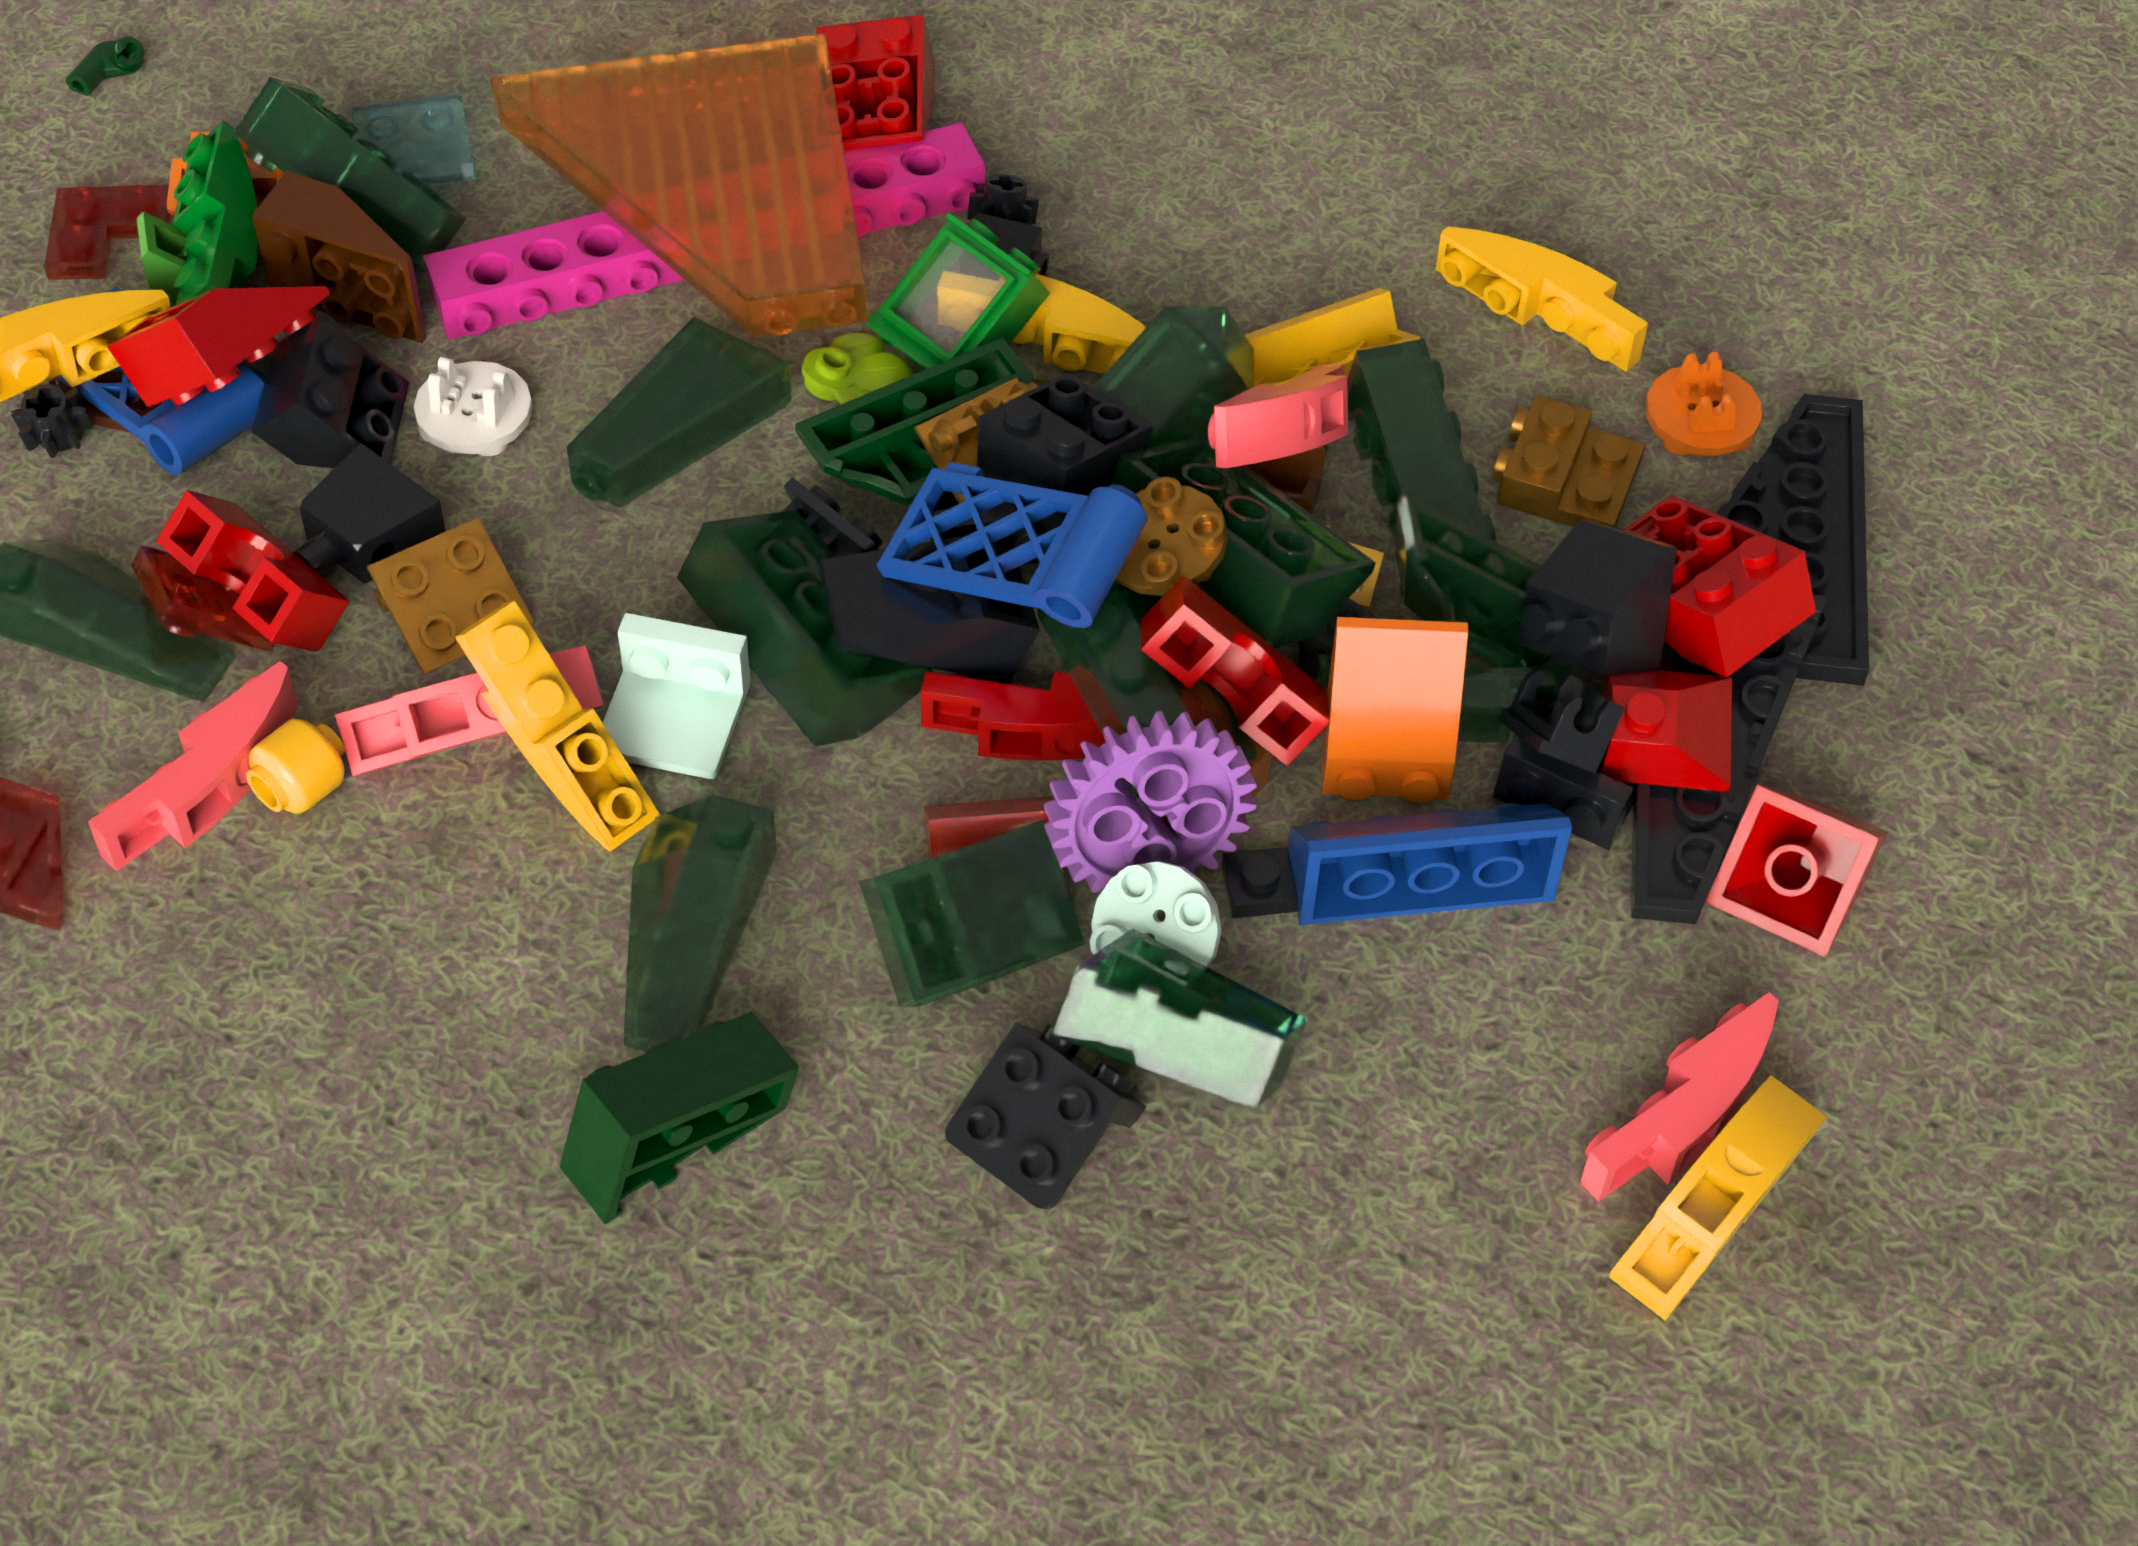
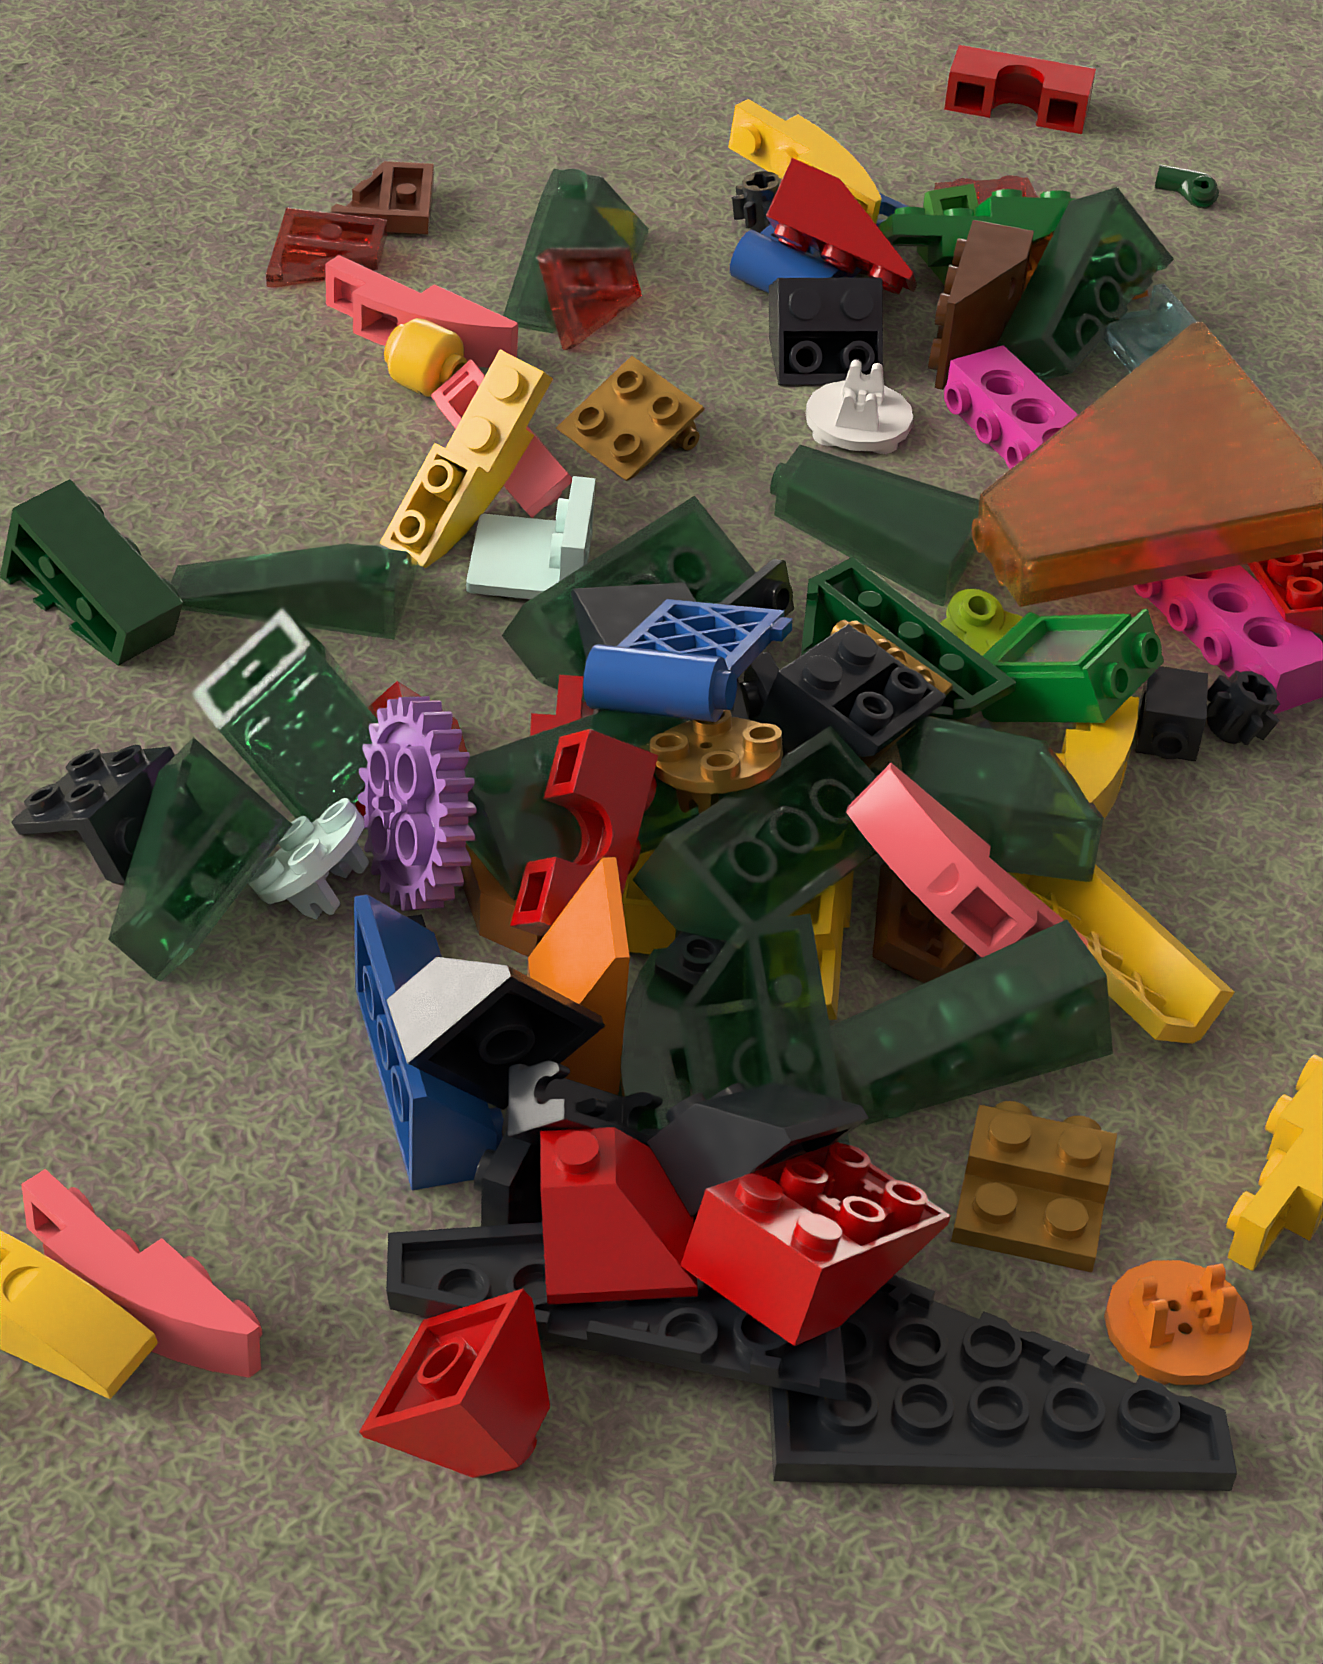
camera: 80 degrees right, 10 degrees down
(275, 587) = (595, 324): red arch -> none
(365, 515) = (706, 361): black torso -> none
(1486, 759) = (481, 1018): none -> black slope

